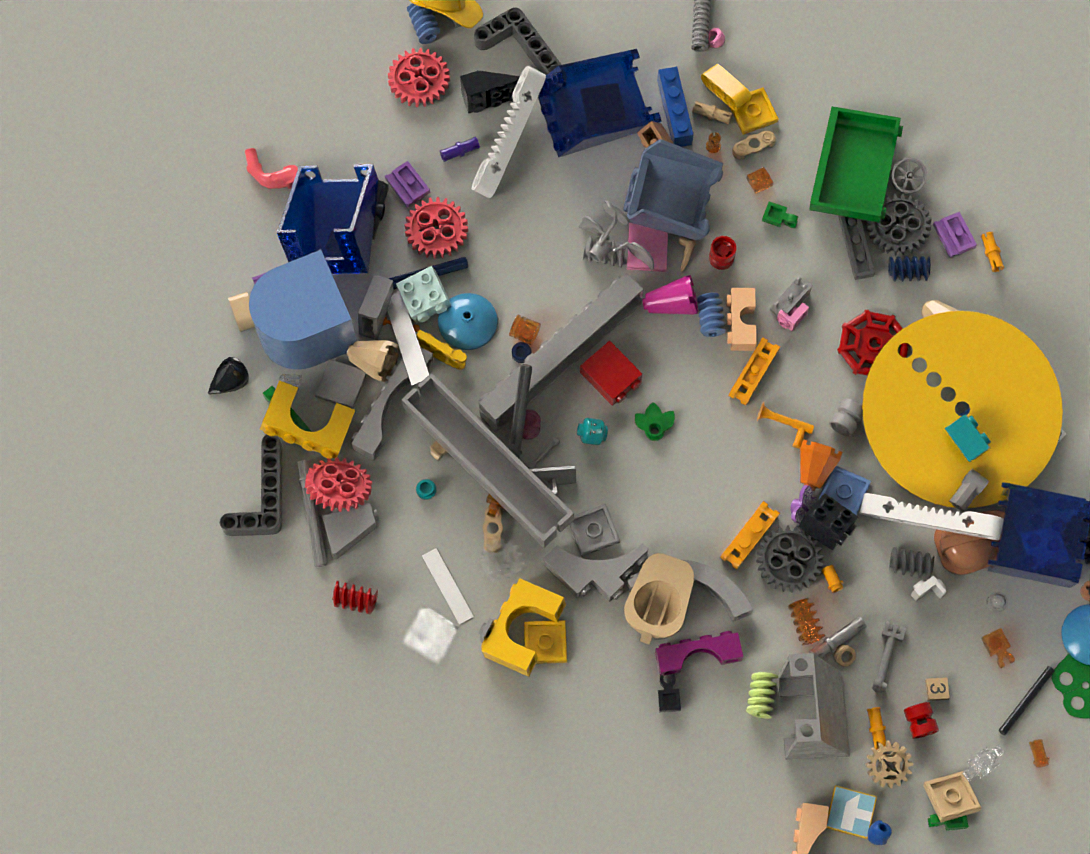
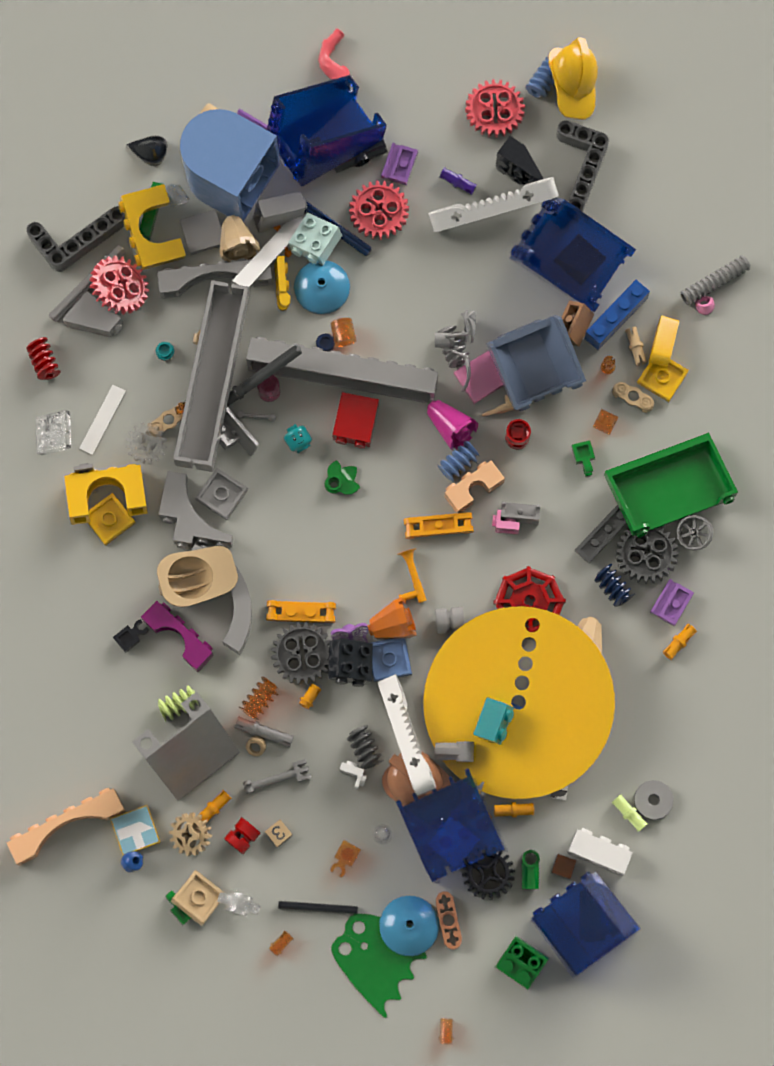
camera: 55 degrees right, 5 degrees up
(1049, 478) = (513, 810): none -> light orange pin

